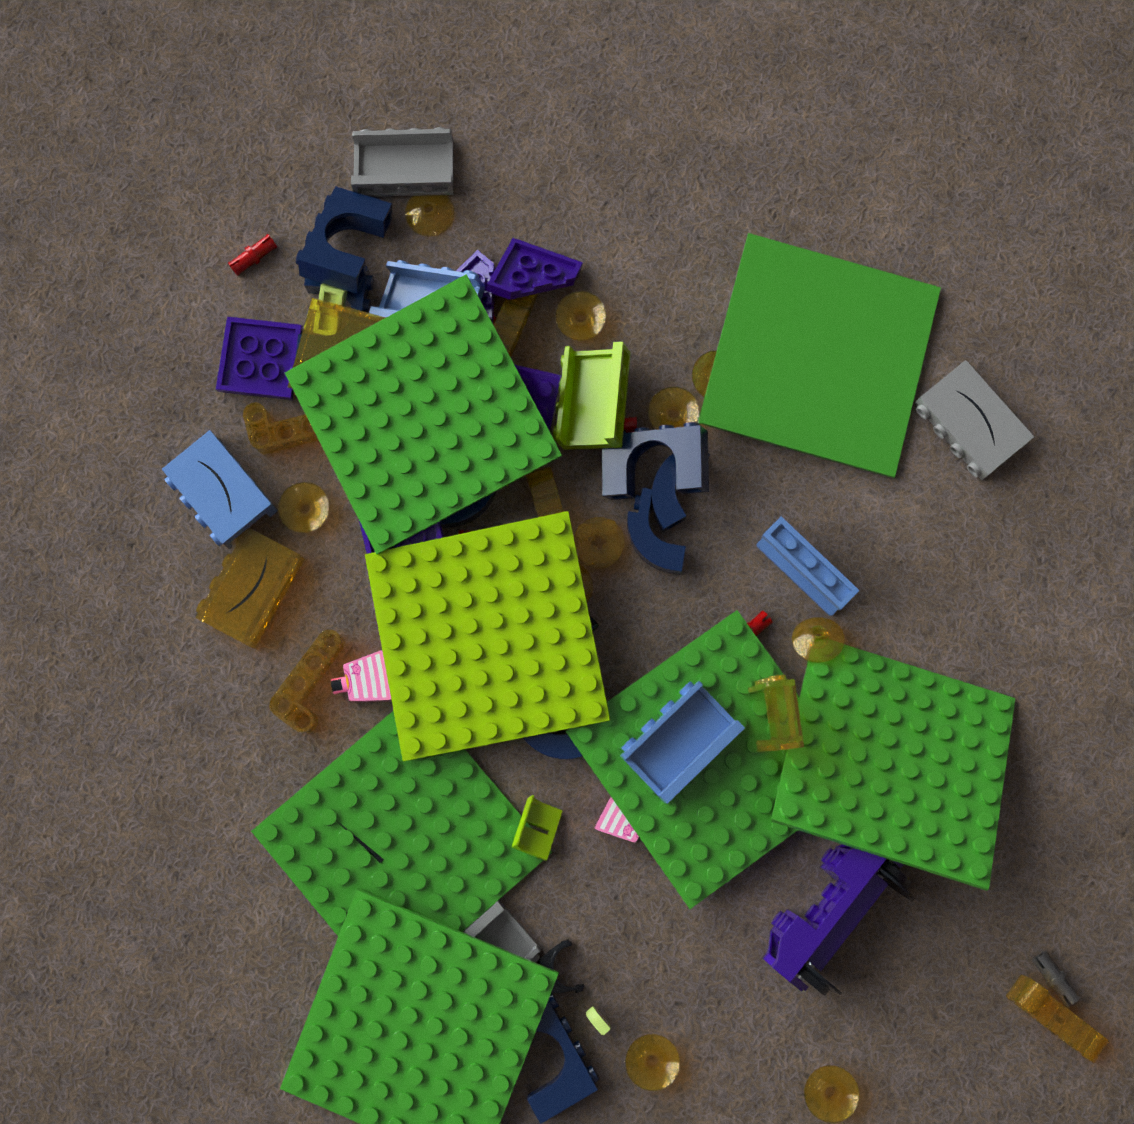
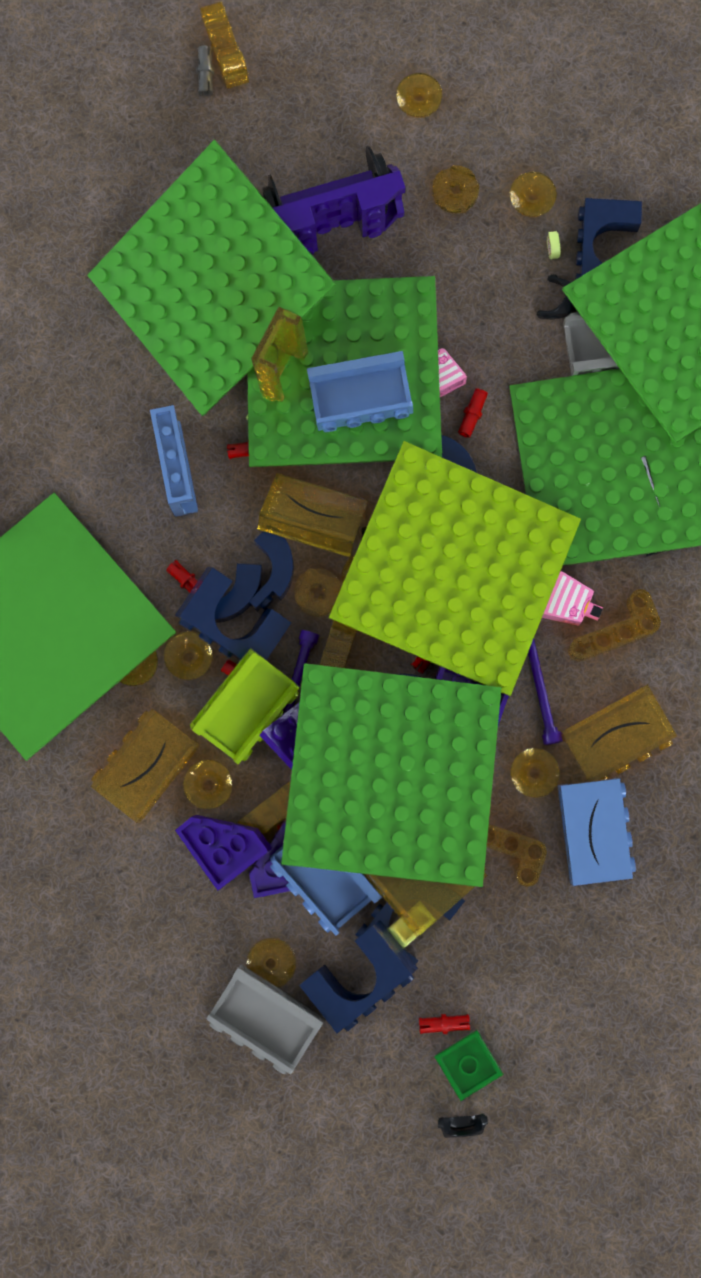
camera: 145 degrees left, 0 degrees up
(202, 177) = (478, 1121): none -> black helmet
(211, 235) = (468, 1065): none -> green plate
(257, 357) = (494, 926): dark purple plate -> none
(310, 550) = (551, 733): none -> dark purple piece
(531, 840) = (519, 398): lime piece -> none
(568, 801) = (472, 413): none -> red pin
(579, 494) = (307, 641): none -> dark purple piece
(646, 295) = (144, 765): none -> clear yellow panel
(649, 604) = (312, 514): none -> clear yellow panel
(726, 478) = (182, 575): none -> red axle
(743, 1026) = (450, 178): none -> clear yellow plate
(821, 647) = (210, 401): clear yellow dish -> none

